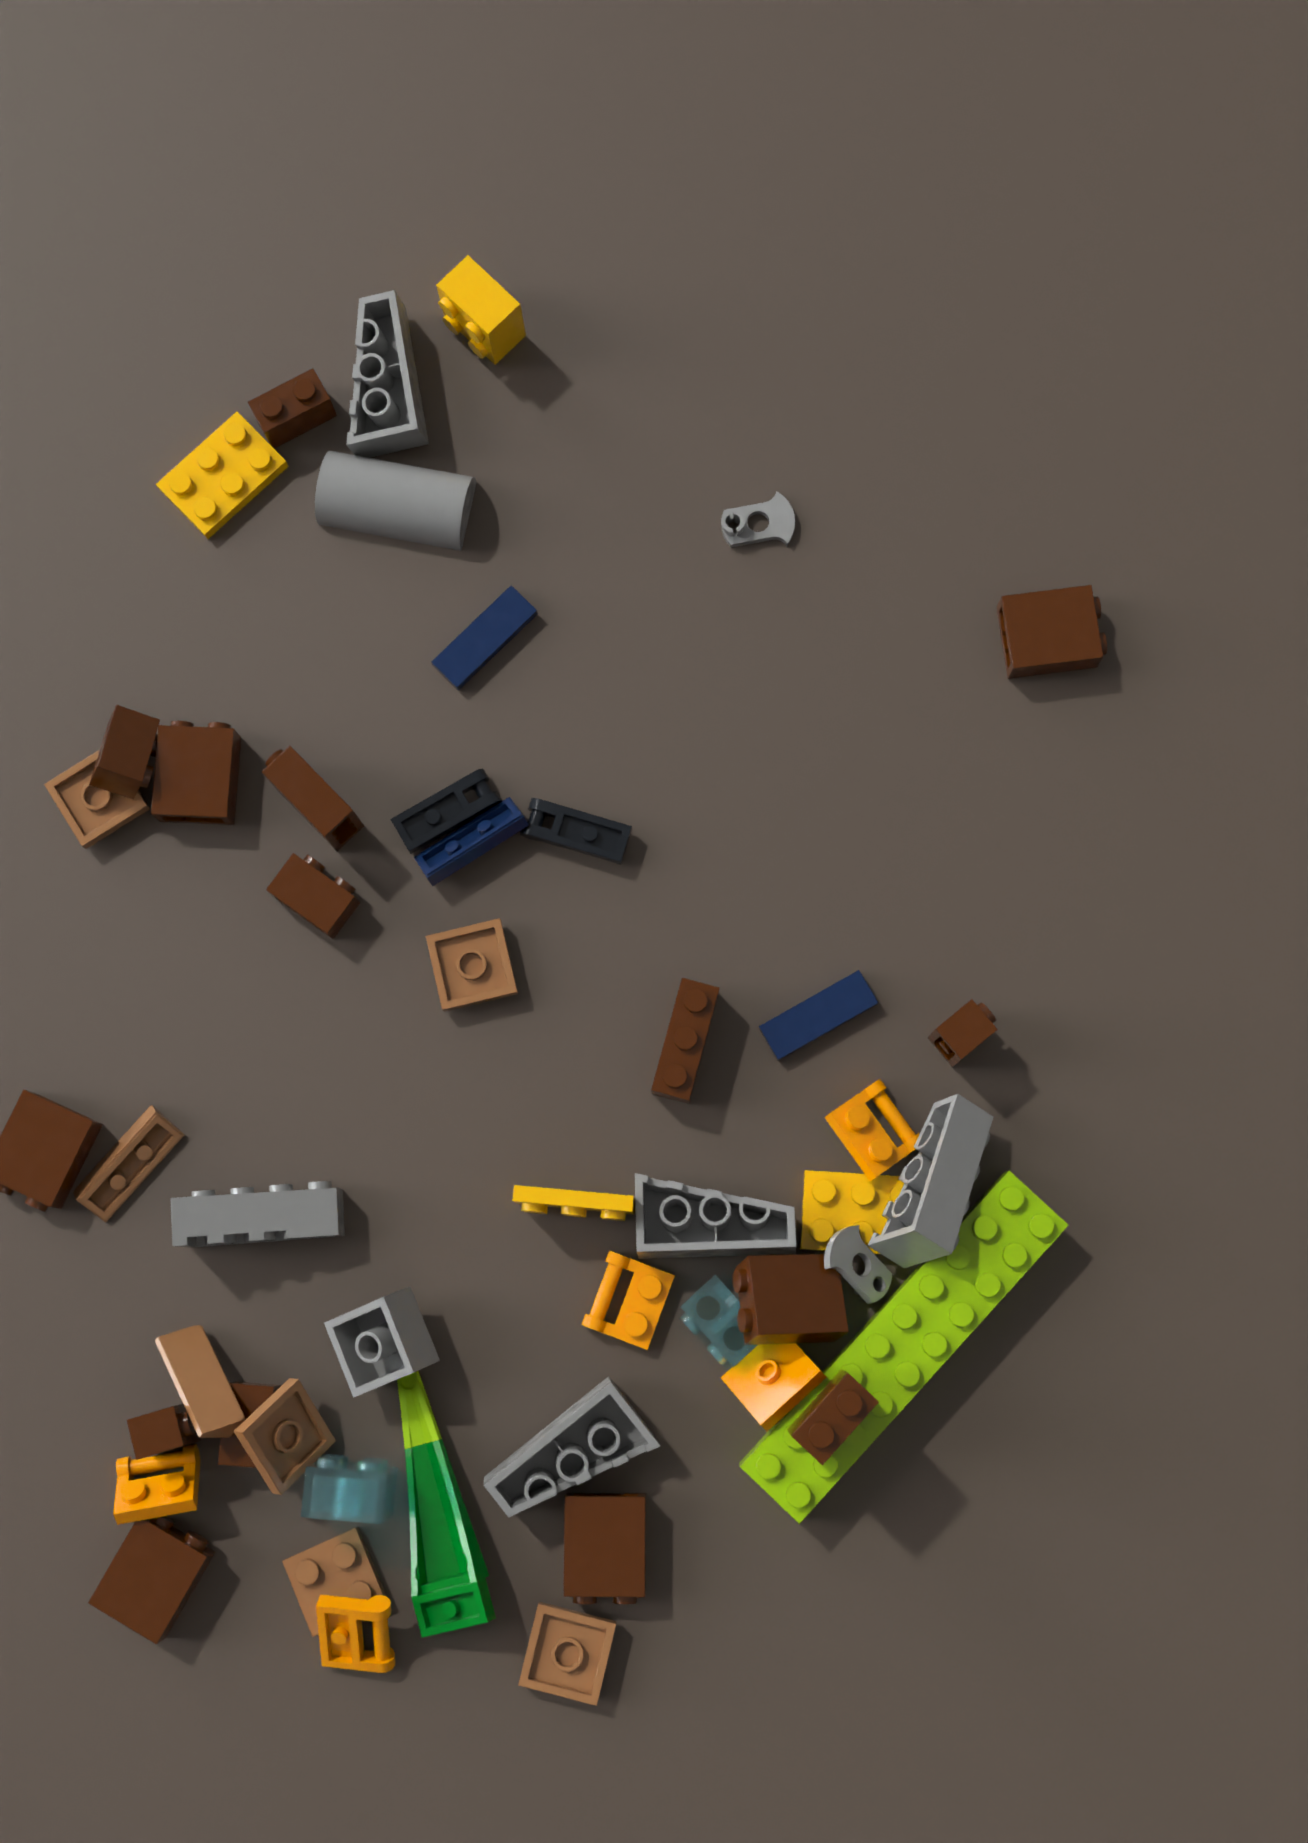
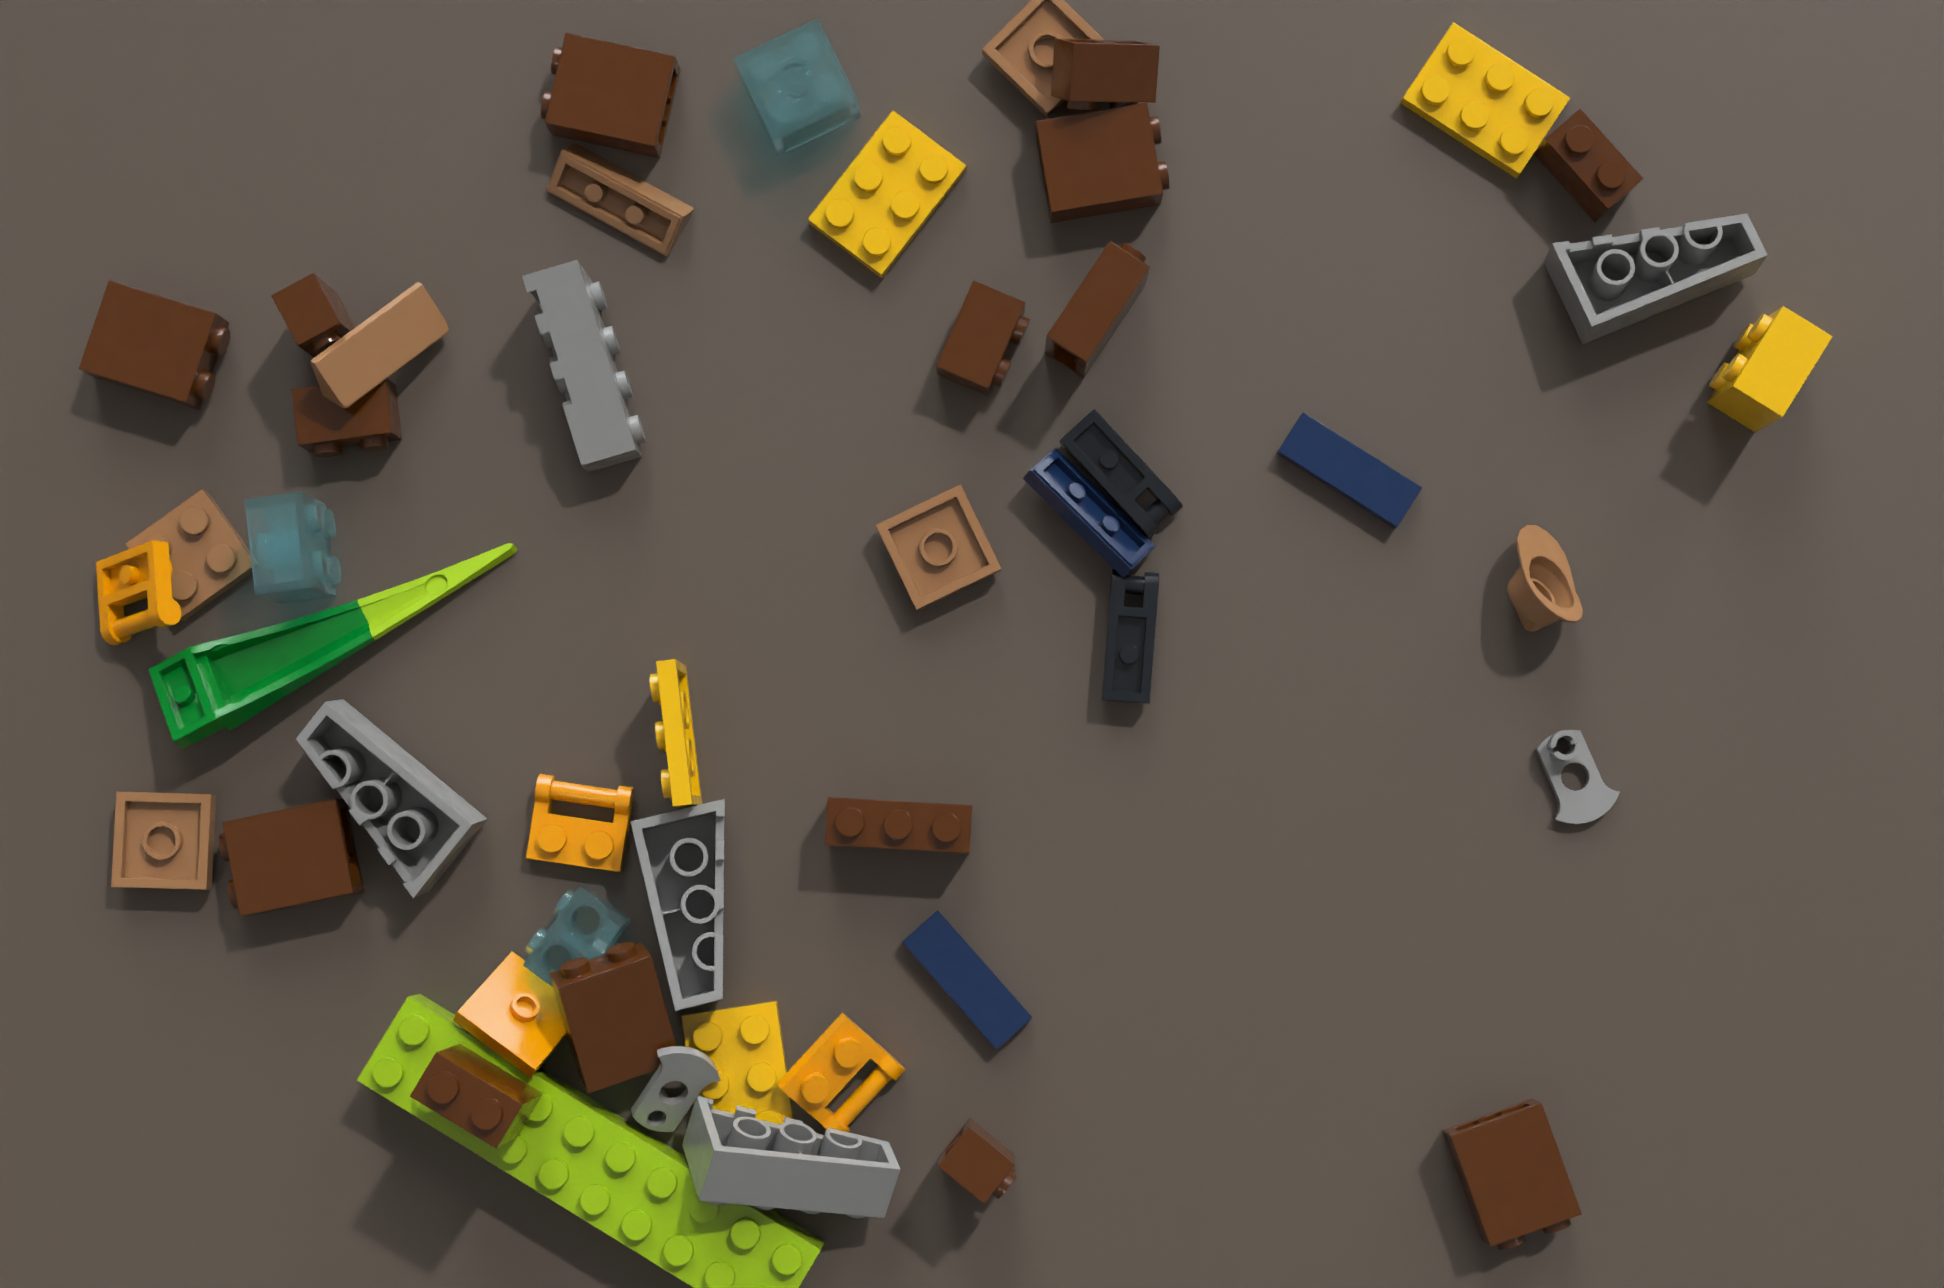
camera: 75 degrees right, 5 degrees up
(74, 998) = (797, 87): none -> clear light blue brick
(157, 1494) = (244, 327): light orange plate -> none
(179, 947) = (887, 194): none -> yellow plate
(285, 1436) = (337, 458): medium nougat plate -> none
(381, 1341) = (467, 545): light grey brick -> none
(393, 500) = (1500, 318): light grey brick -> none
(606, 512) = (1543, 582): none -> medium nougat piece

